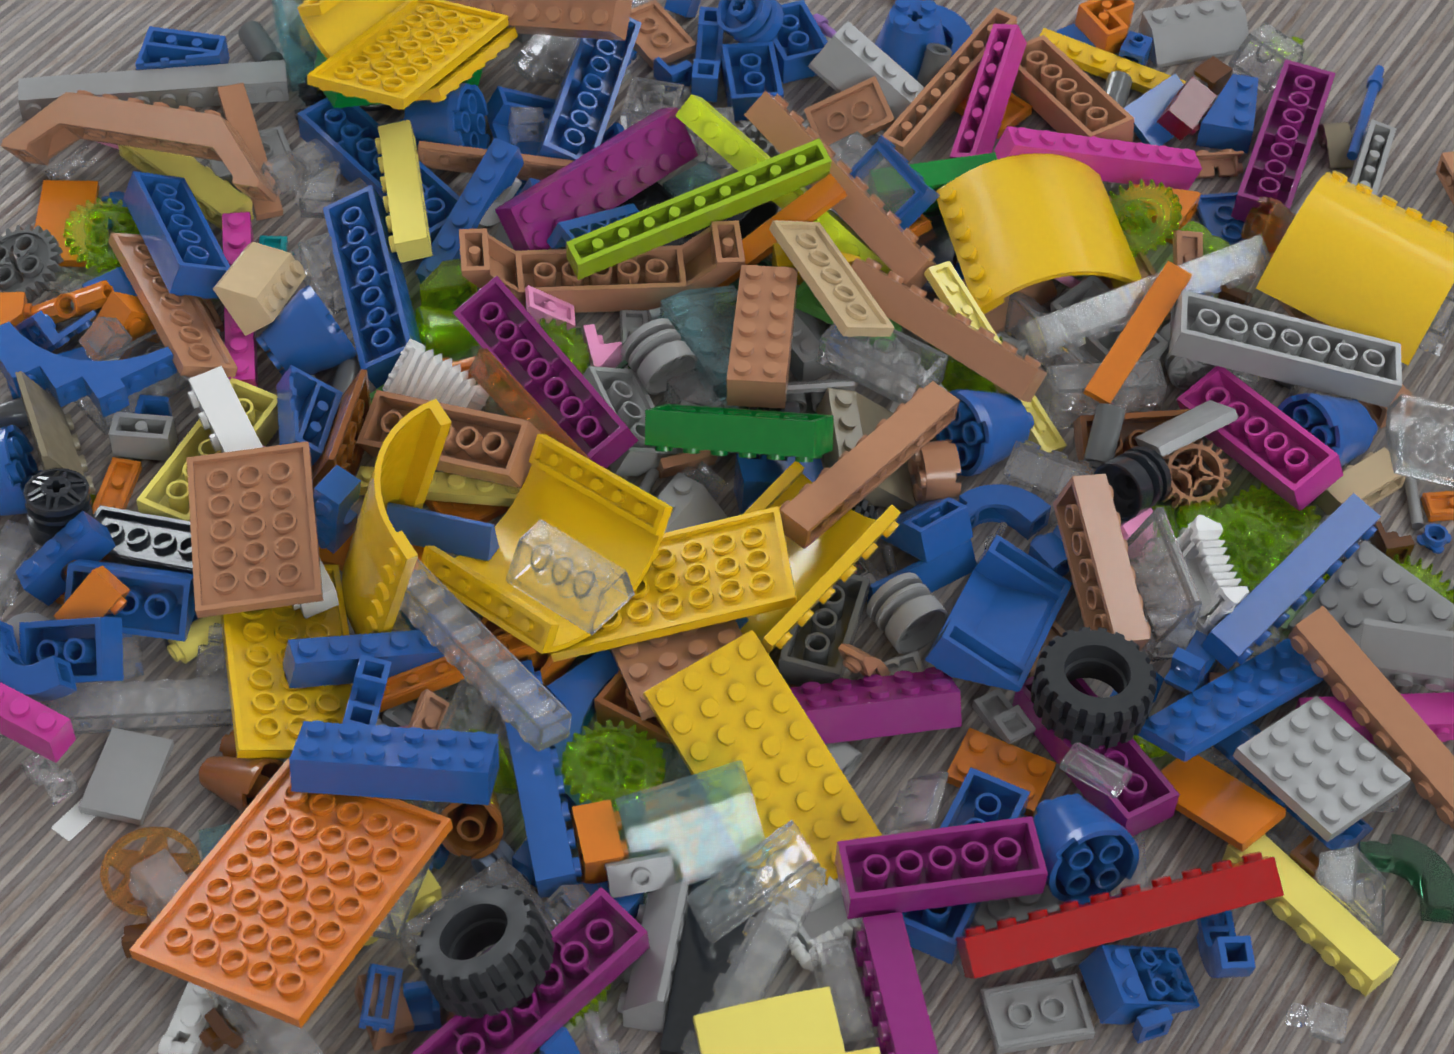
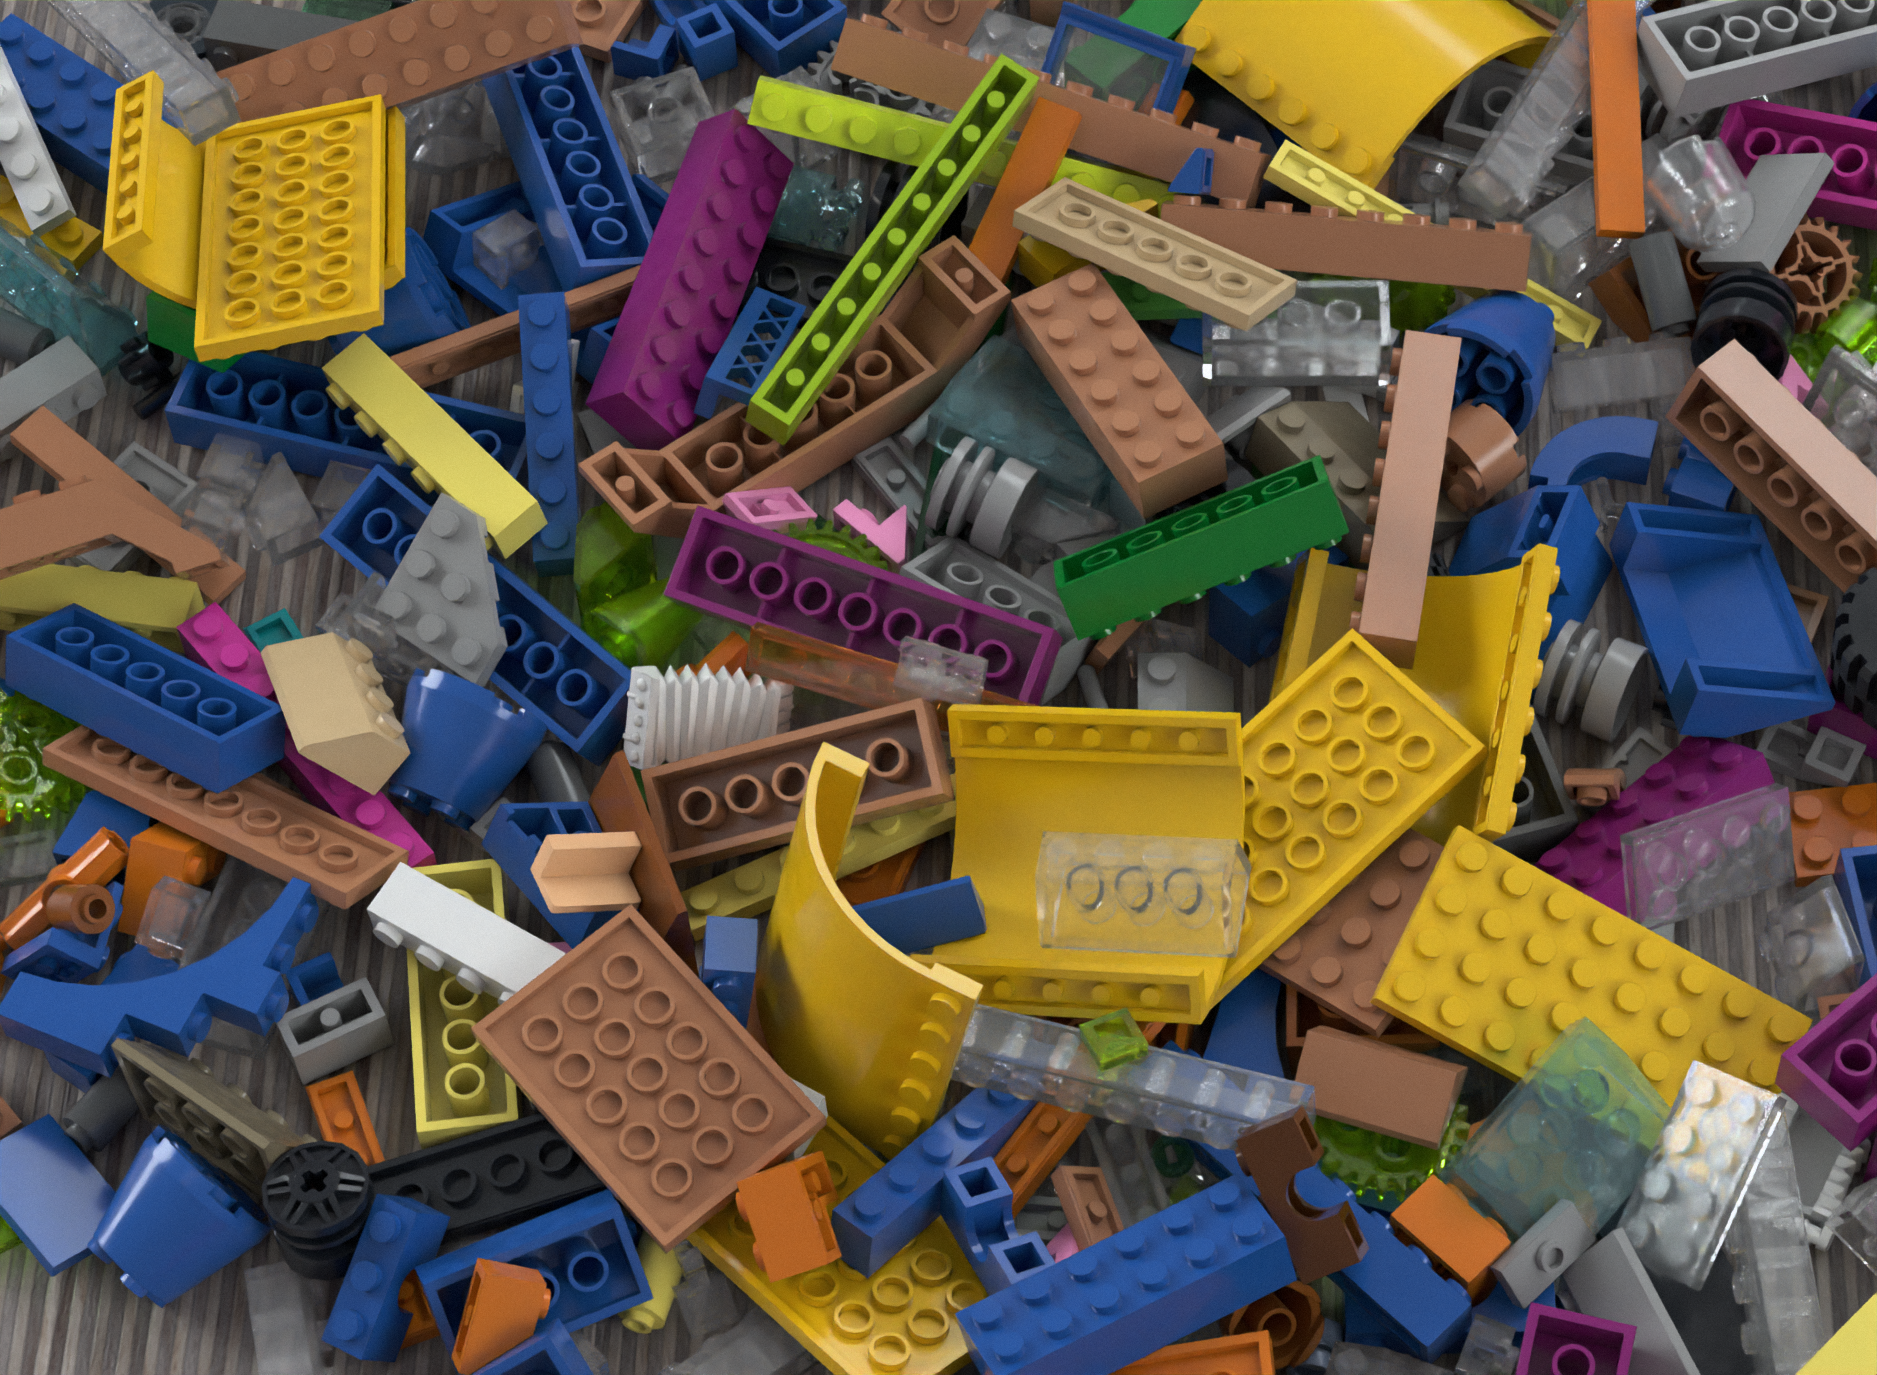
camera: 25 degrees left, 5 degrees up
(55, 311) = (81, 908): none -> dark orange brick
(265, 627) = (790, 1216): none -> orange brick
(305, 418) = (587, 871): none -> light nougat panel
(355, 260) = (449, 593): none -> light grey plate
(483, 718) = (1183, 1153): none -> clear green hinge
(491, 636) = (1113, 1039): none -> clear neon green tile
(513, 786) = (1316, 1237): none -> reddish brown arch
(551, 416) = (940, 672): none -> clear hips
(618, 739) = (1380, 1085): none -> nougat slope
(886, 252) = (1195, 174): none -> blue slope
(893, 731) = (1708, 857): none -> clear plate
(1152, 397) = (1702, 194): none -> clear cylinder

